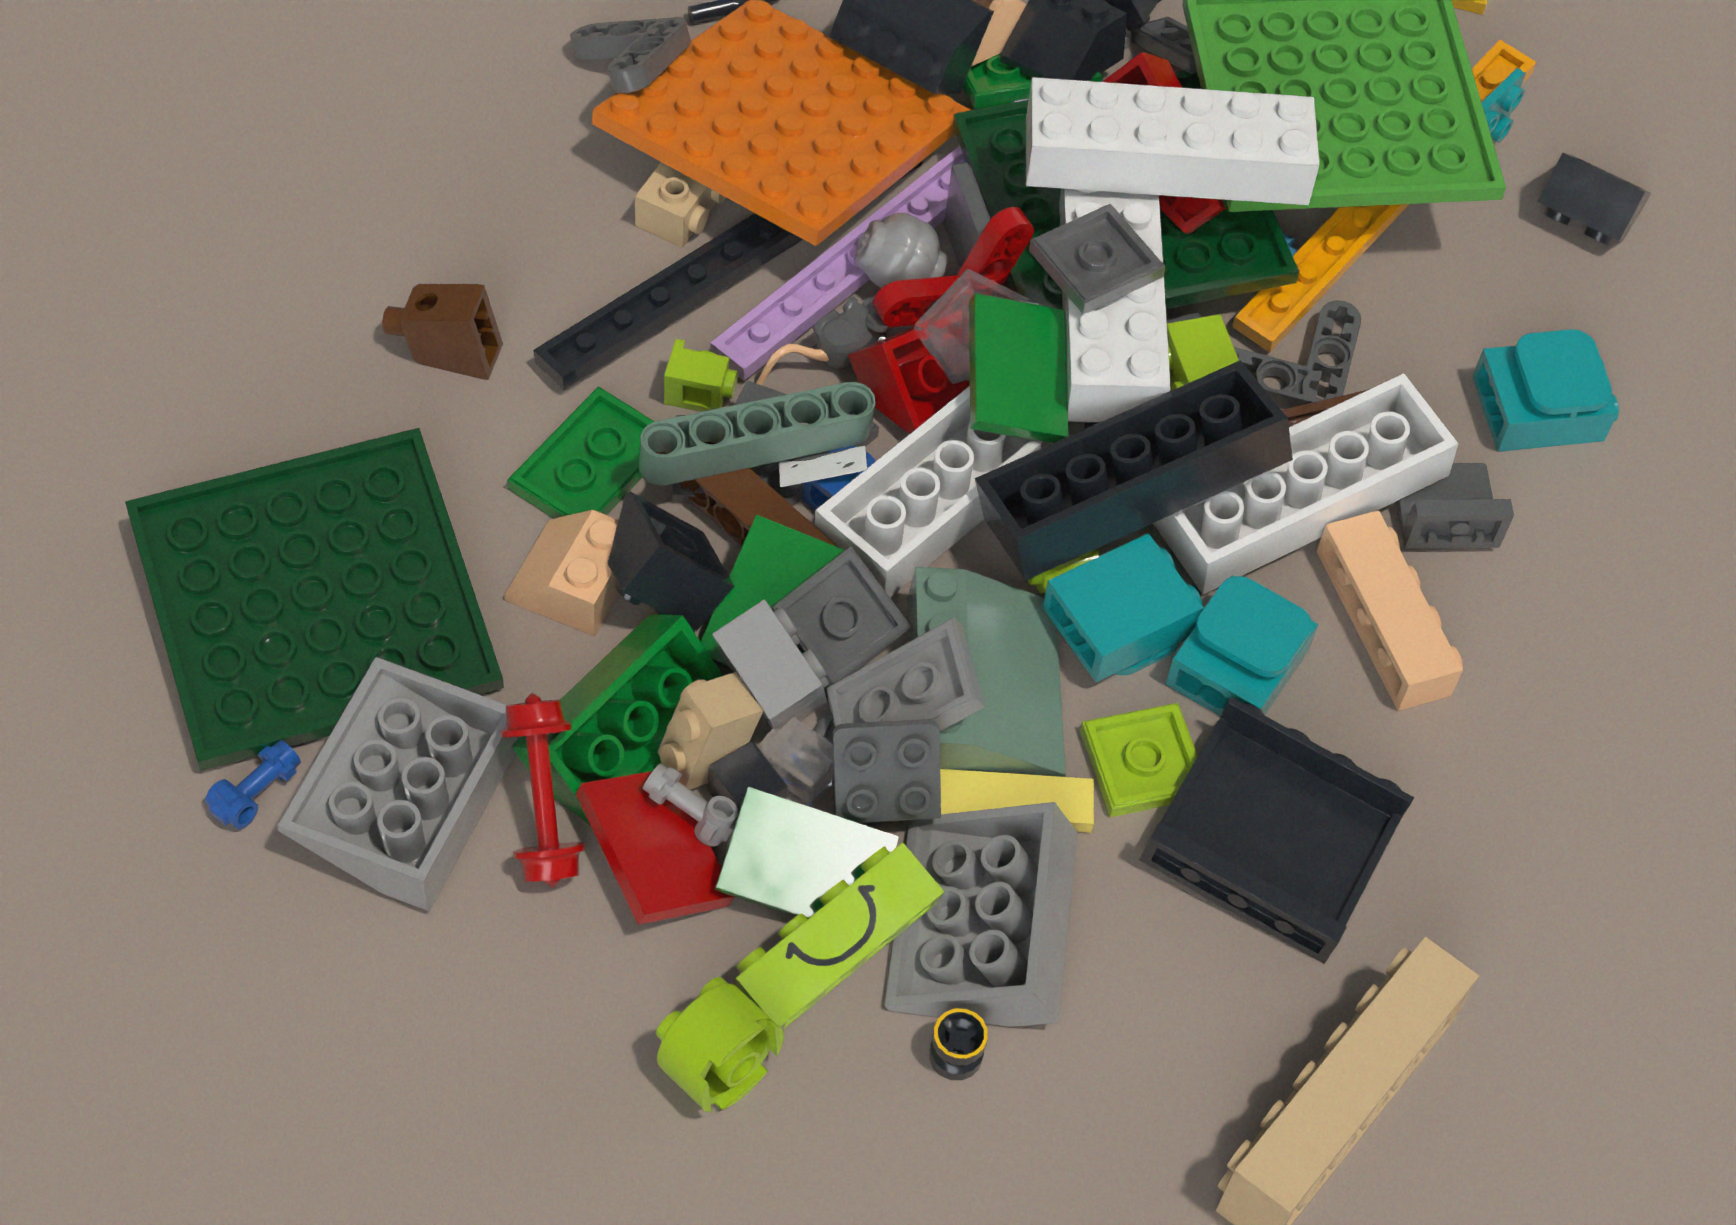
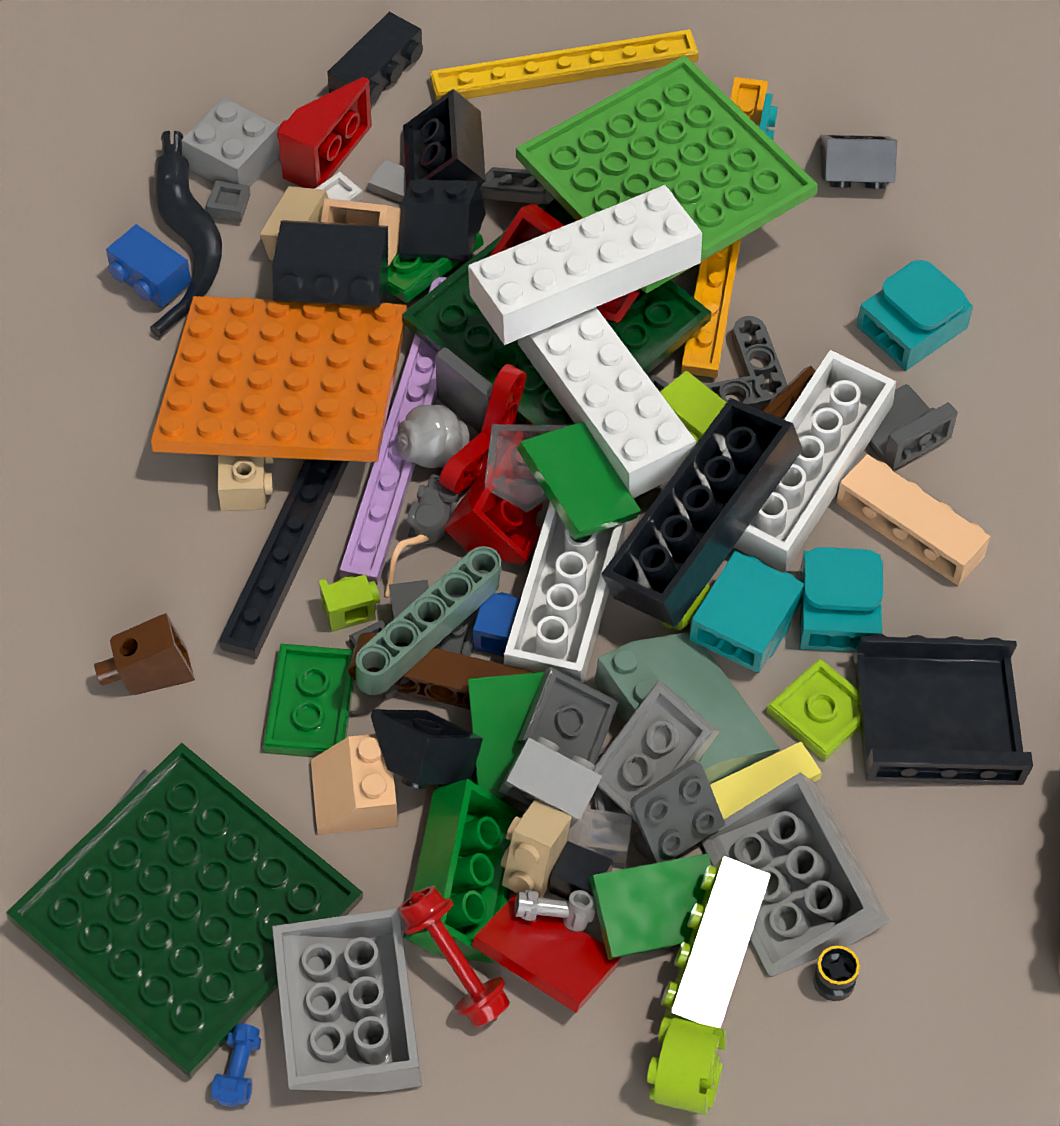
camera: 25 degrees left, 0 degrees up
(639, 48) = (153, 367): dark grey beam -> none
(822, 466) = (484, 619): white sticker -> none
(1096, 258) = (589, 374): flat silver tile -> none

